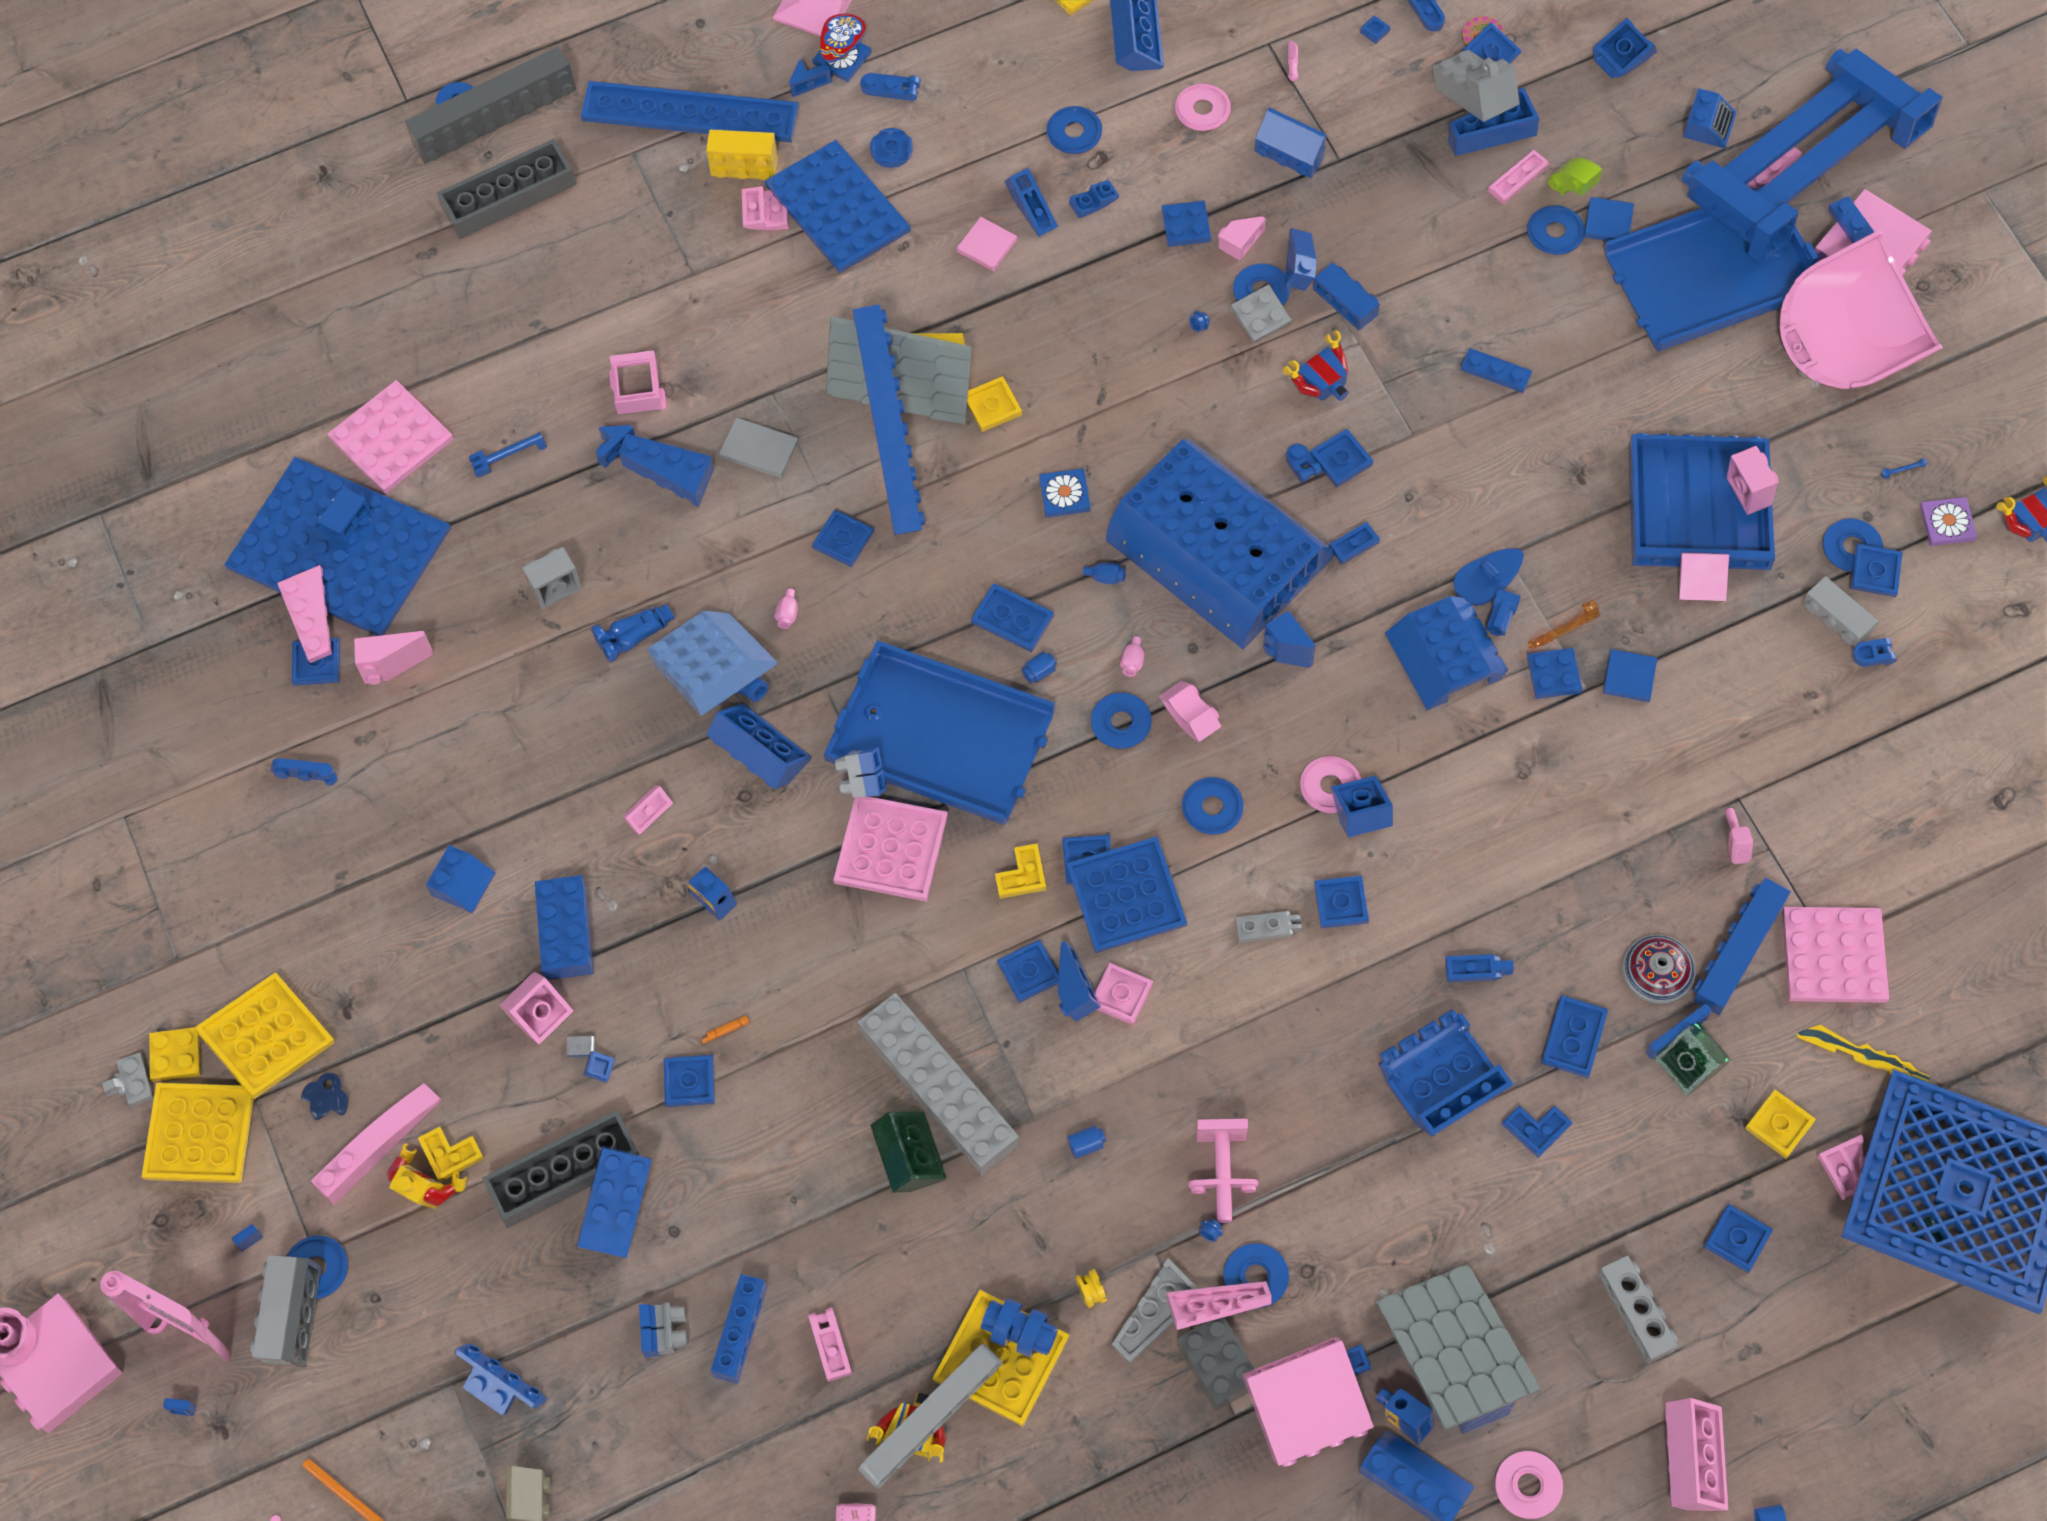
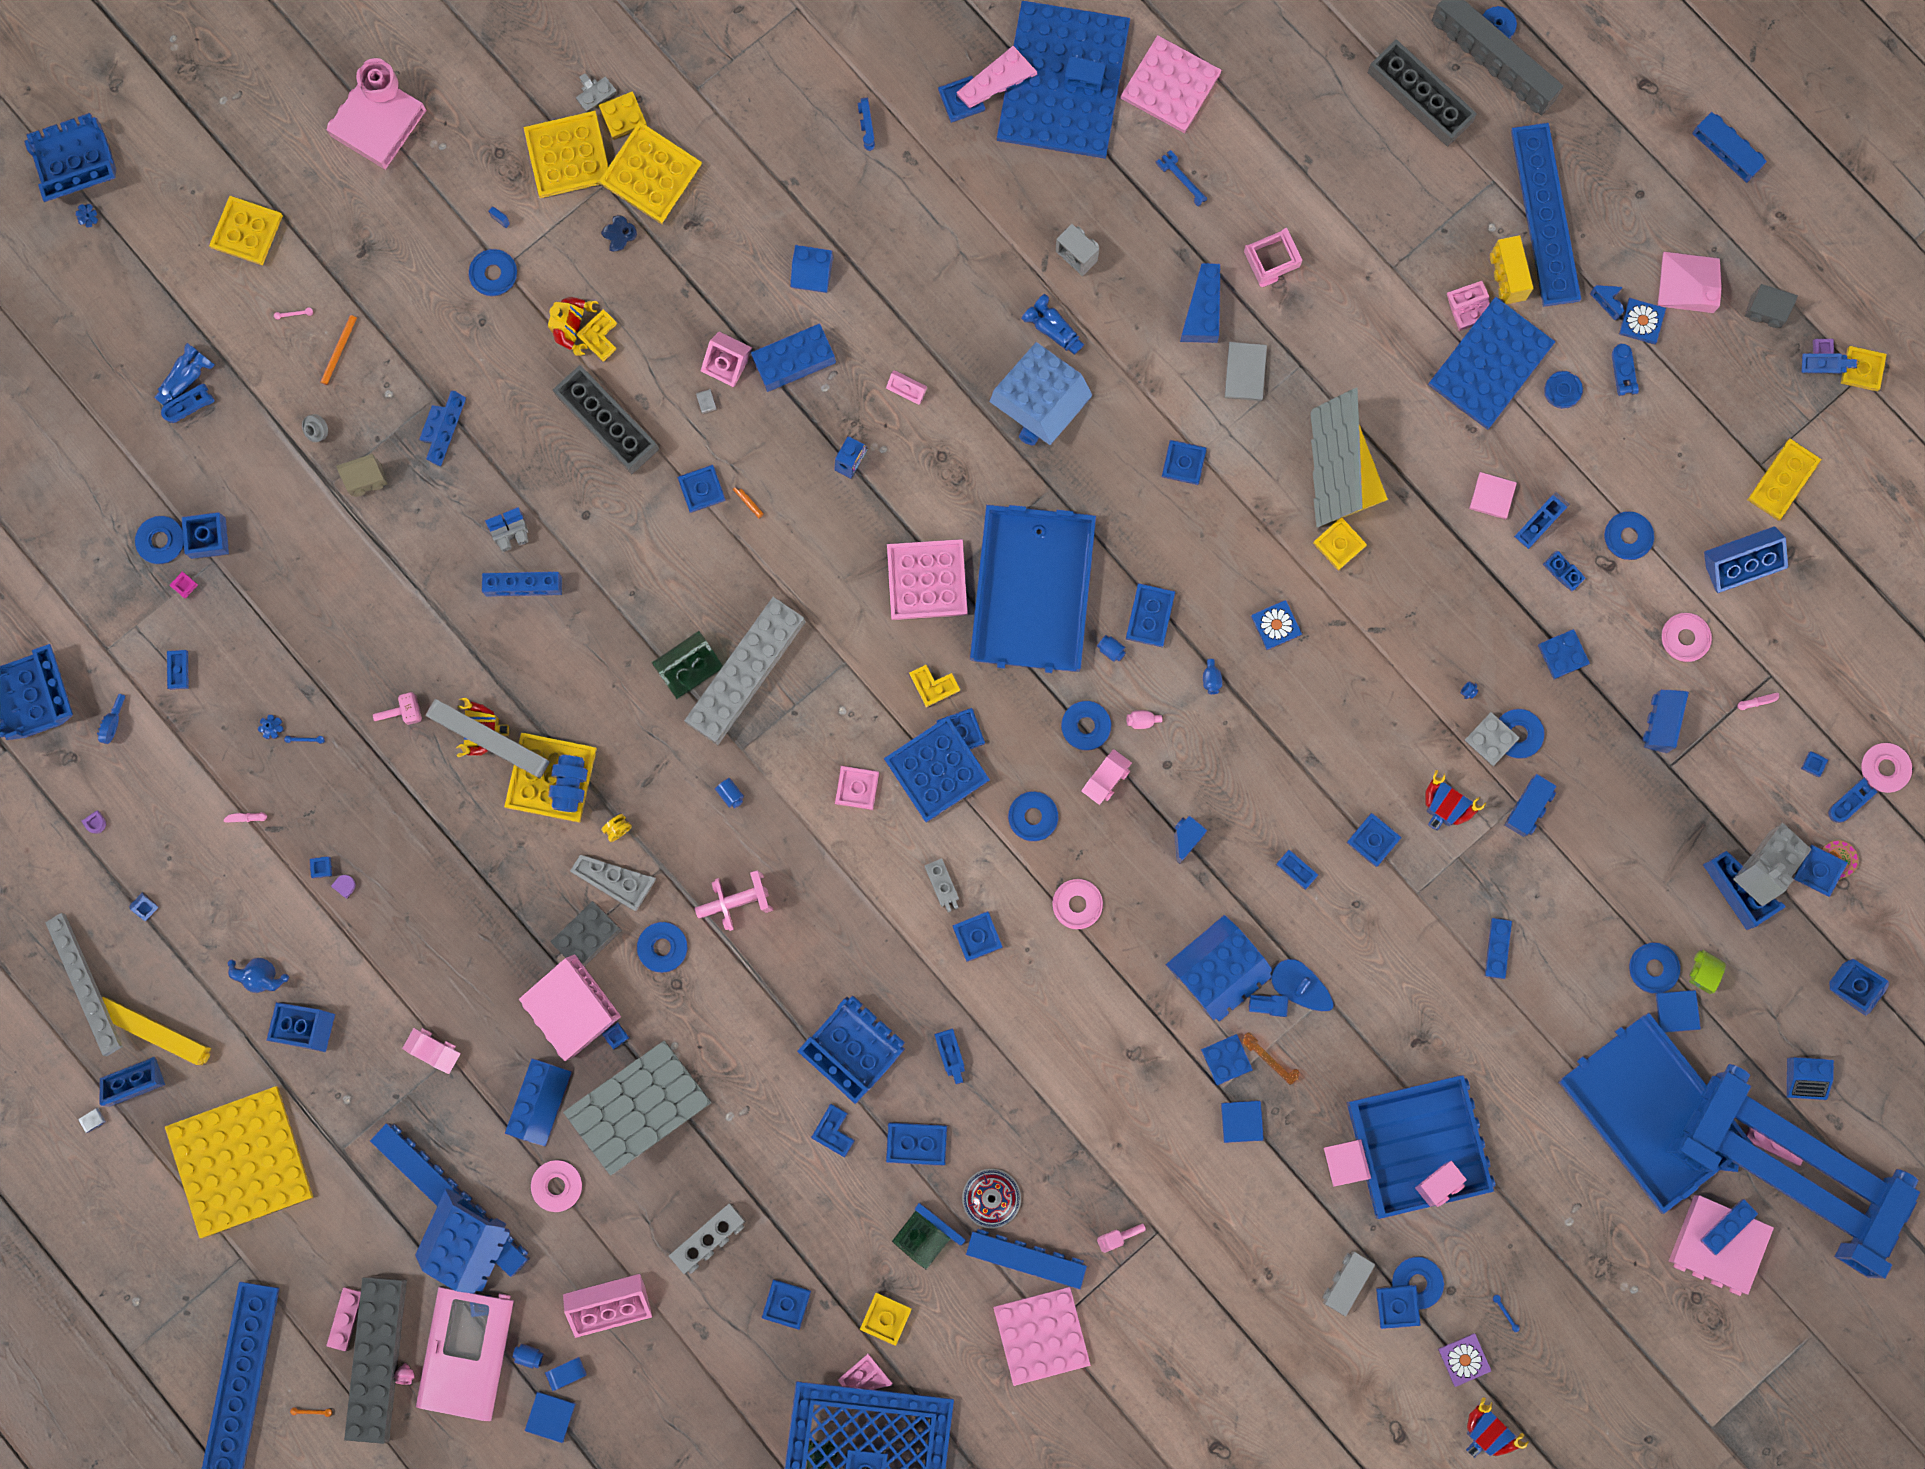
camera: 75 degrees right, 15 degrees up
(146, 1305) = (410, 183): bright pink piece -> none
(179, 1407) = (367, 216): blue tile -> none
(285, 1311) = (448, 263): piece -> none
(374, 1144) = (592, 280): bright pink slope -> none
(390, 655) = (974, 150): bright pink slope -> none
(598, 1066) = (693, 419): blue tile -> none
(613, 440) = (1206, 255): blue slope -> none
(614, 1202) = (586, 464): blue brick -> none
(758, 745) = (983, 453): blue slope -> none
(786, 610) = (1105, 438): bright pink plant -> none
(830, 1345) = (528, 652): bright pink plate -> none
(840, 36) = (1655, 313): shield -> none
(863, 773) = (975, 539): hips -> none
(887, 420) = (1283, 462): blue brick -> none
(1029, 971) = (856, 713): blue tile -> none
(1073, 986) = (850, 750): blue slope -> none
(1210, 565) = (1236, 761): blue slope -> none
(1210, 1230) = (687, 904): blue plate -> none
(1212, 1303) = (625, 920): bright pink wing -> none
(1240, 236) = (1563, 702): bright pink slope -> none
(1299, 456) = (1365, 804): blue plate -> none
(1300, 260) = (1556, 758): blue slope -> none
(1362, 806) = (1062, 932): blue slope -> none
(1407, 1414) = (578, 1089): blue torso -> none
(1518, 176) = (1699, 923): bright pink tile -> none
(1854, 318) = (1634, 1244): bright pink windscreen -> none
(1863, 1054) = (963, 1374): yellow sword -> none
(1866, 653) = (1316, 1312): blue plate -> none

